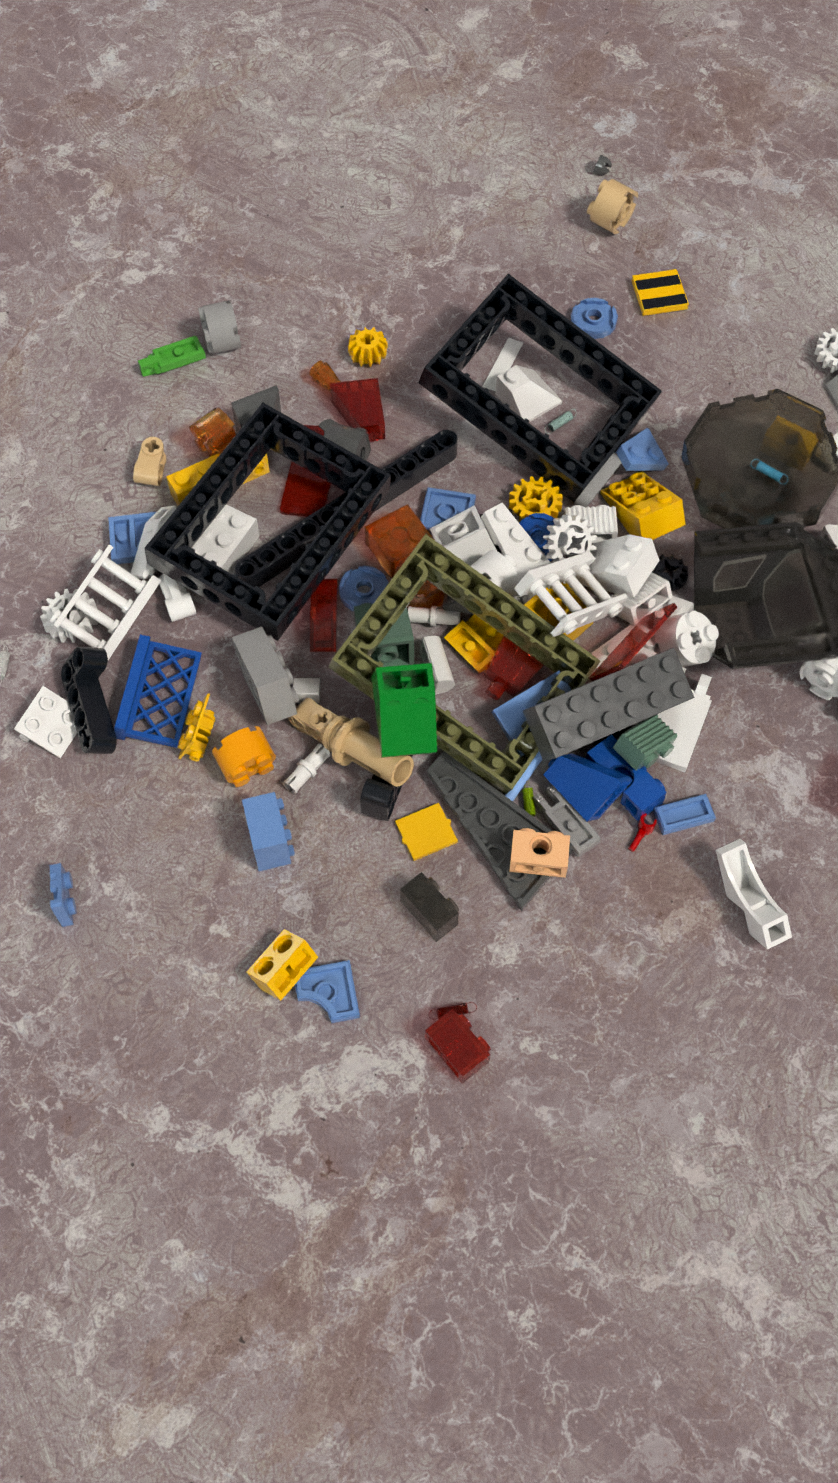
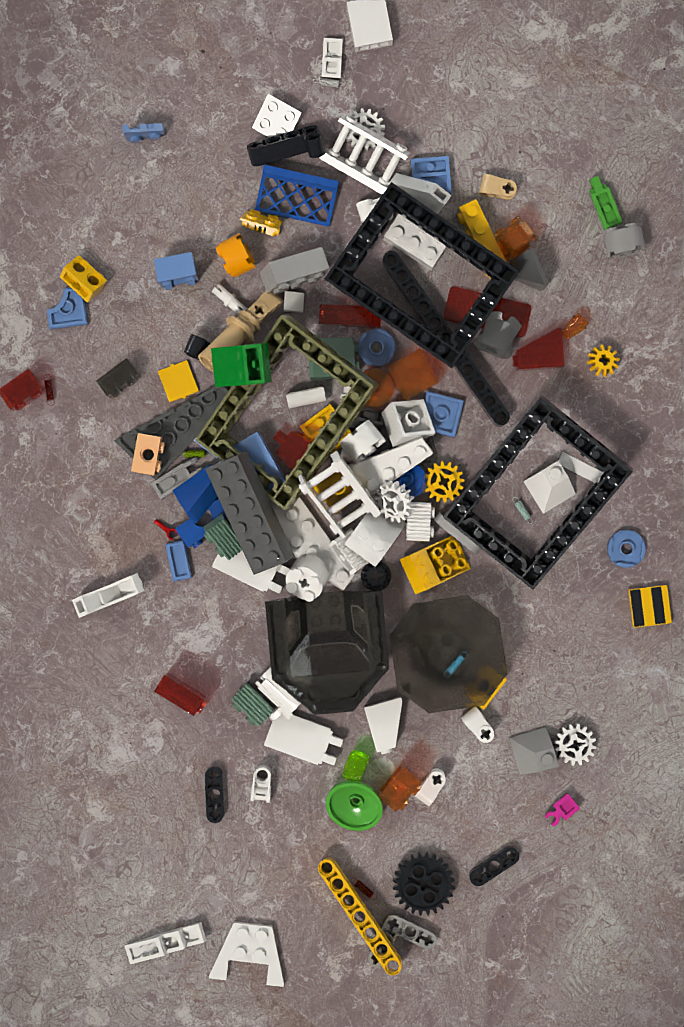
camera: 95 degrees right, 25 degrees up
(633, 642) = (299, 536): clear red piece -> none
(642, 453) = (483, 569): medium blue wing -> none

